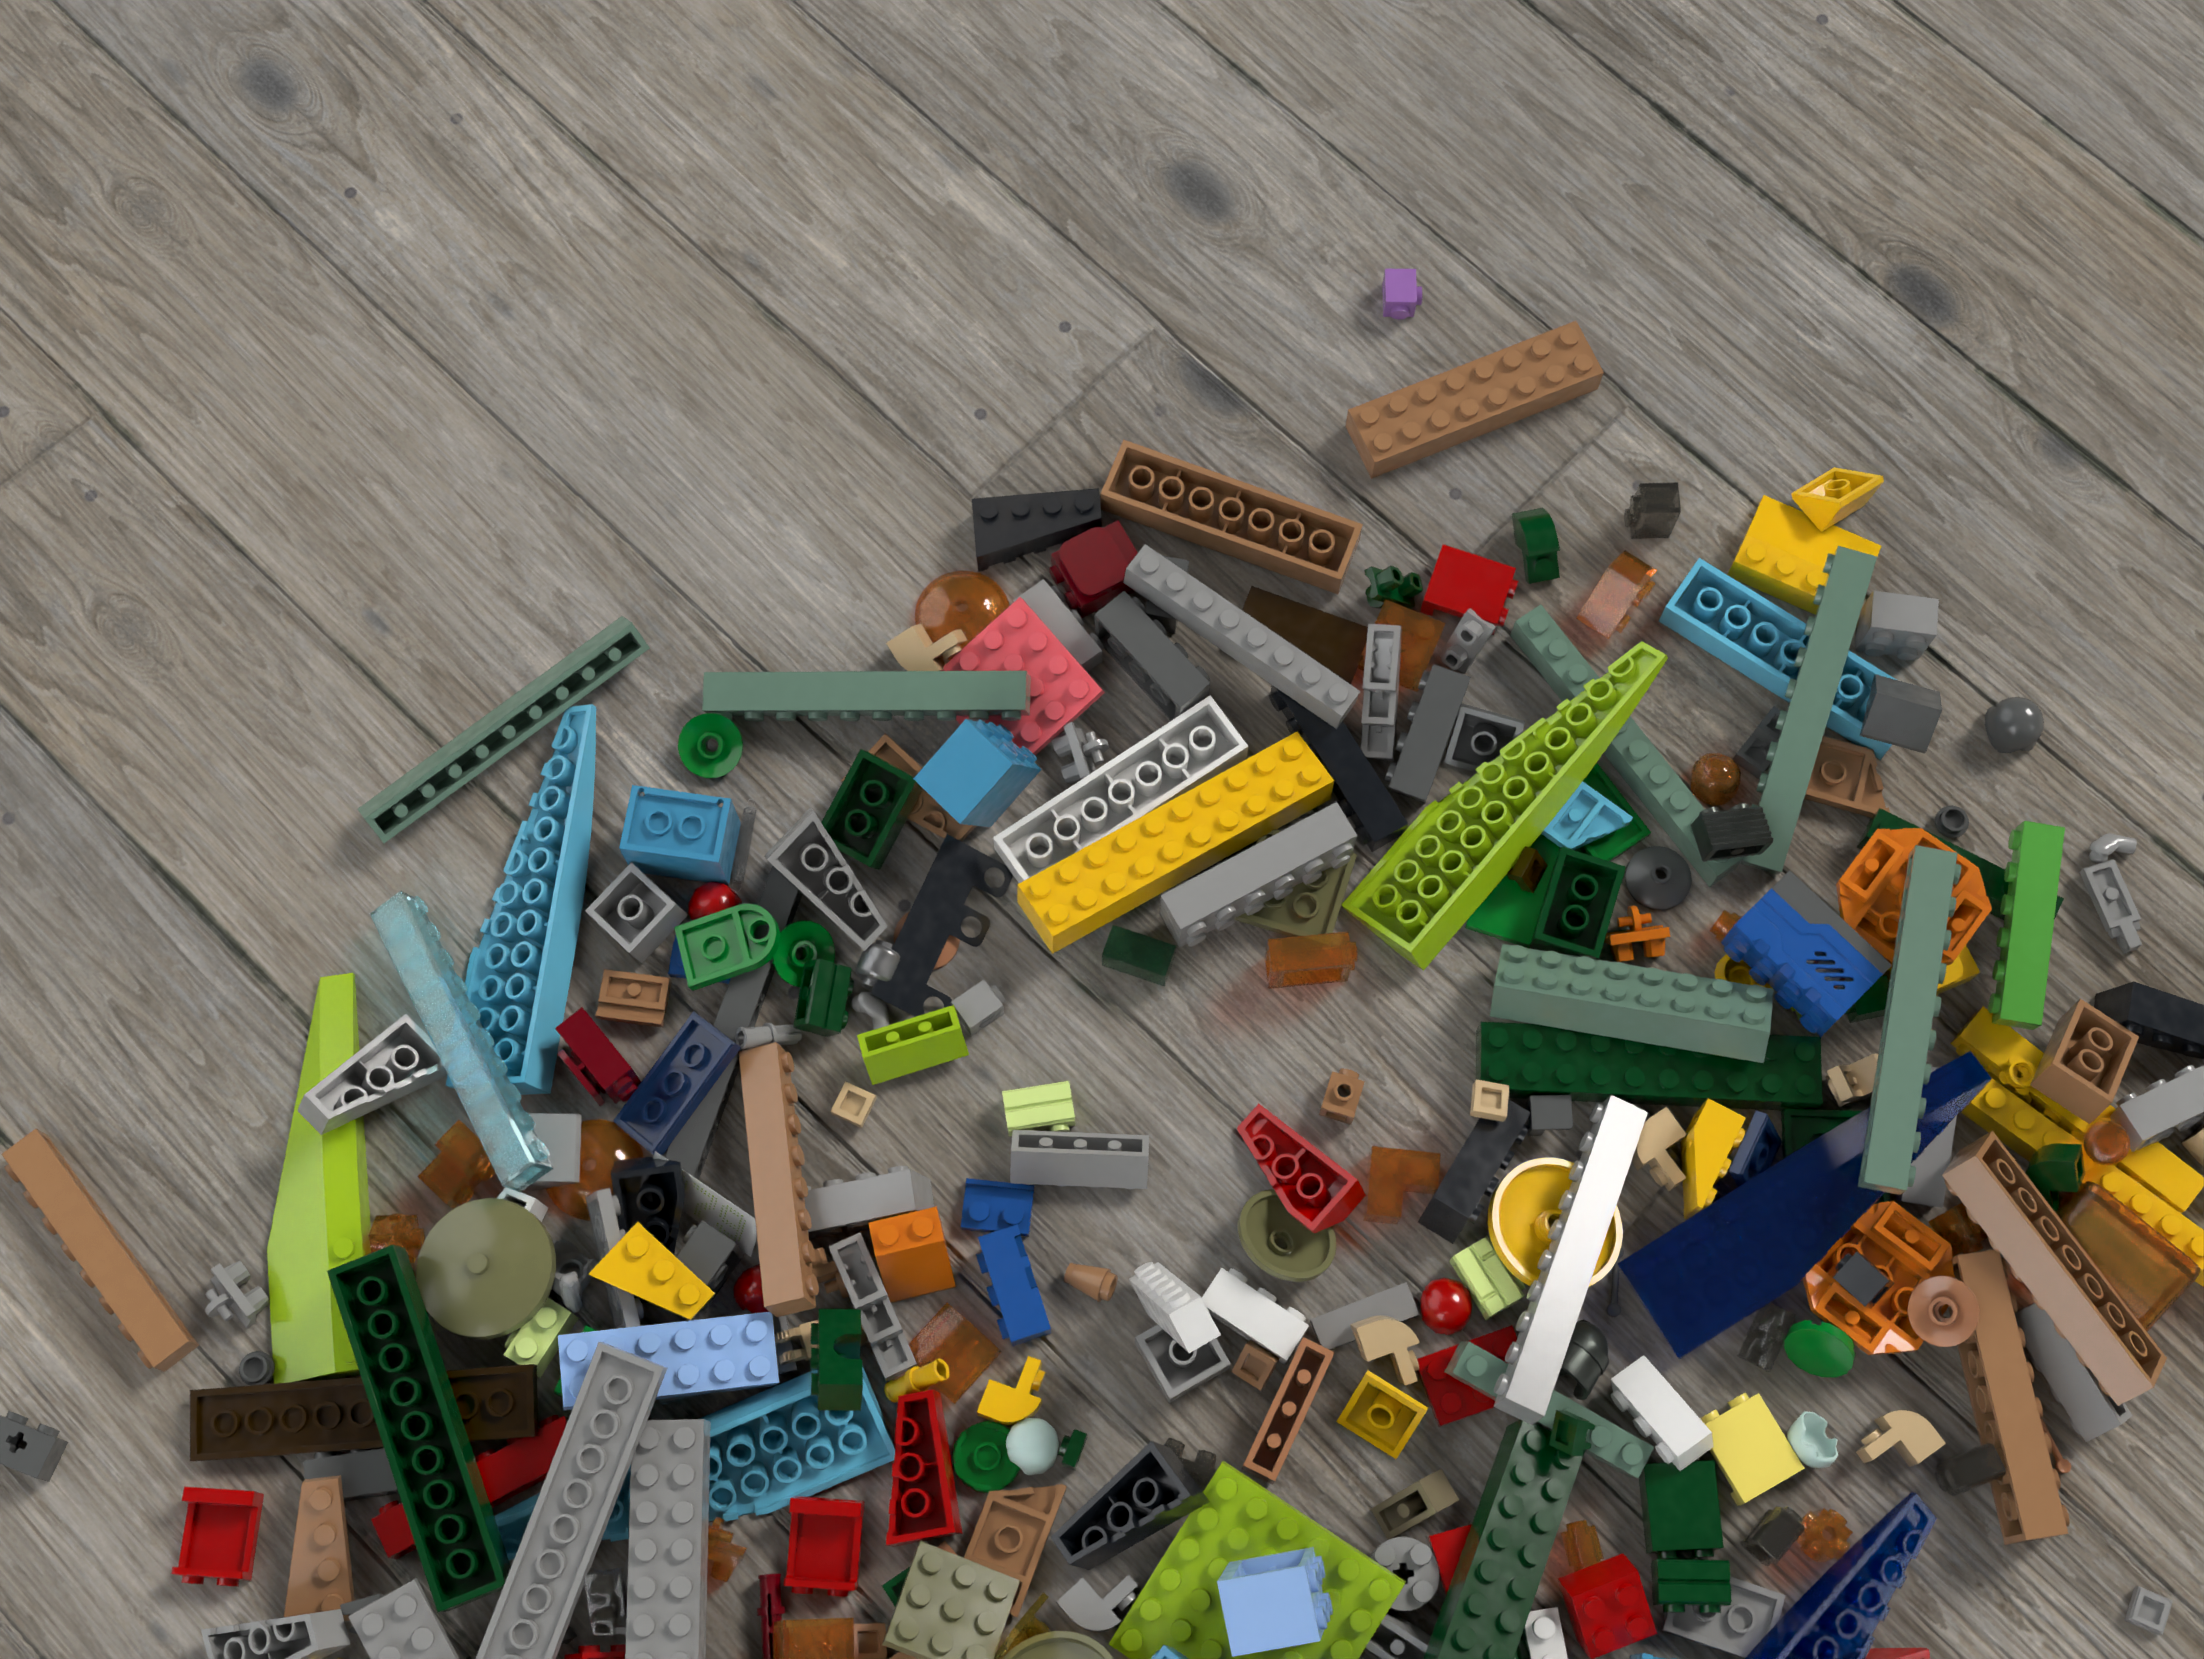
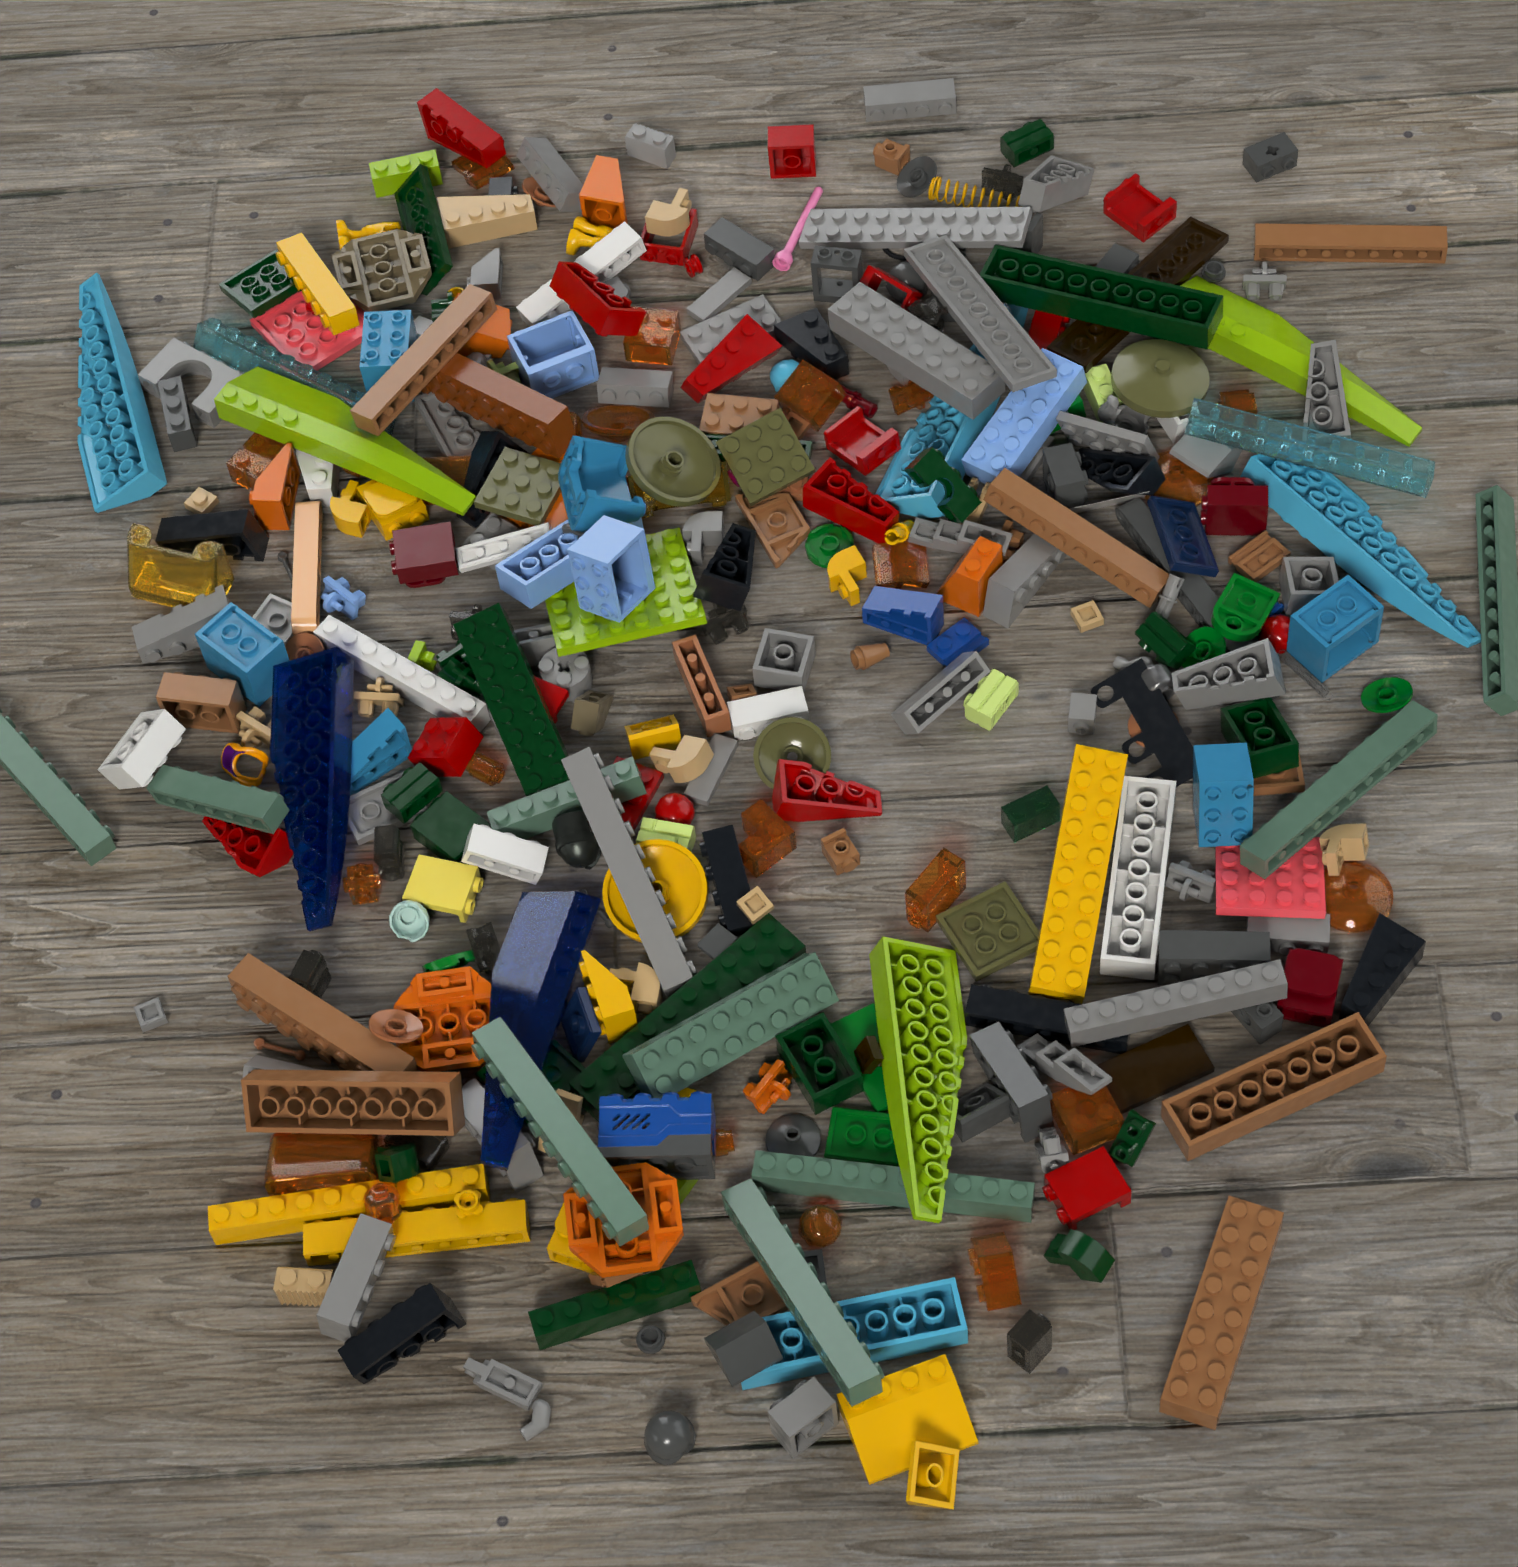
camera: 140 degrees right, 15 degrees down
(321, 1555) = (1082, 236): medium nougat wing -> none
(397, 1230) = (1224, 363): clear orange brick -> none
(653, 1273) = (1074, 435): yellow wing -> none
(912, 1045) = (1091, 660): lime brick -> none
(1032, 1445) = (811, 564): light aqua hair -> none
(1072, 1448) = (790, 580): dark green plate -> none
(1174, 1306) = (804, 637): white brick -> none
(1258, 875) = (1010, 894): light grey brick -> none
(1400, 293) = (1350, 1337): medium lavender brick -> none
(1570, 1433) = (539, 783): dark green tile -> none
(1585, 819) = (868, 1116): medium azure wing -> none
(1731, 832) = (771, 1167): pearl dark grey brick -> none
(1862, 1279) = (456, 1000): black brick -> none
(1907, 1432) = (363, 973): tan brick -> none
(2027, 925) = (542, 1285): bright green brick -> none
(2084, 1061) = (435, 1238): medium nougat brick -> none

